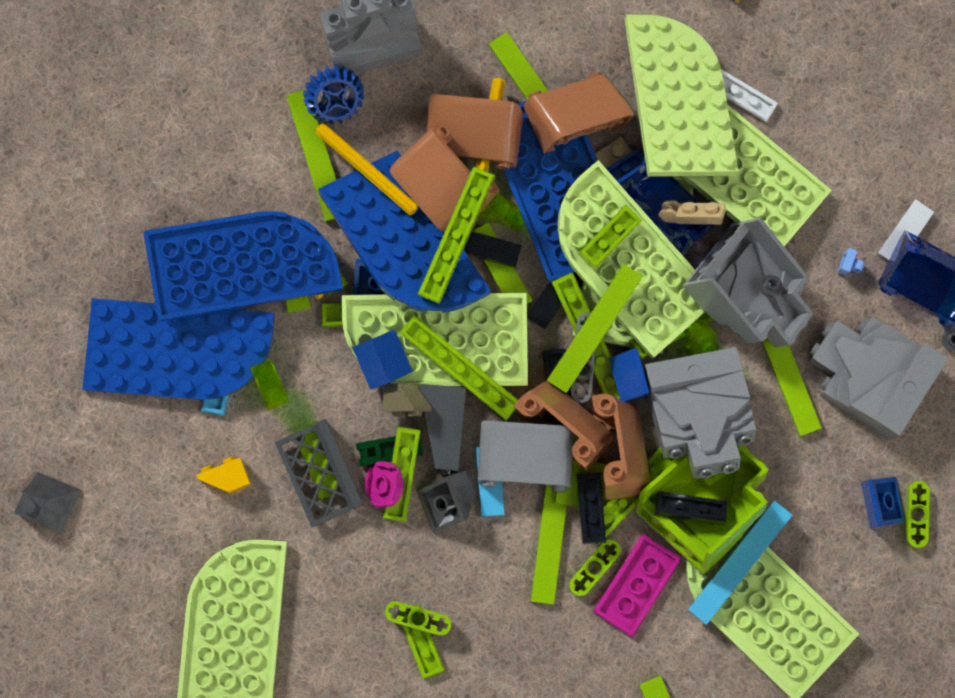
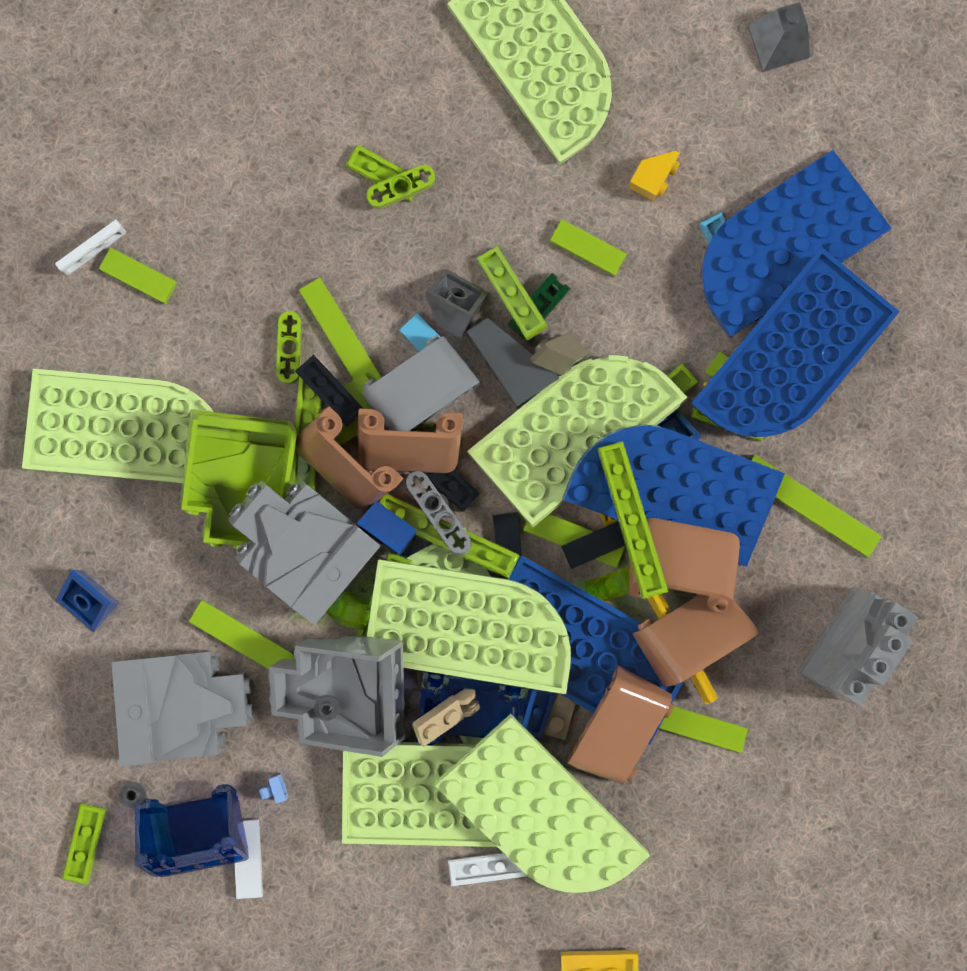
camera: 145 degrees right, 5 degrees up
(269, 384) = (681, 275): clear neon green slope -> none
(334, 85) = (848, 572): blue gear -> none
(338, 466) = (576, 260): dark grey fence -> none
(367, 169) = (760, 524): yellow axle -> none
(382, 359) = (606, 373): blue slope -> none
(384, 484) = (519, 271): dark pink tile -> none
(459, 367) = (537, 418): lime tile -> none
(595, 328) = (448, 543): lime tile -> none
(609, 237) = (500, 632): lime tile -> none
(637, 585) = (242, 362): dark pink tile -> none
(691, 508) = (244, 456): black tile -> none
(739, 562) = (168, 446): medium azure tile -> none
(924, 532) = (45, 594): lime beam -> none

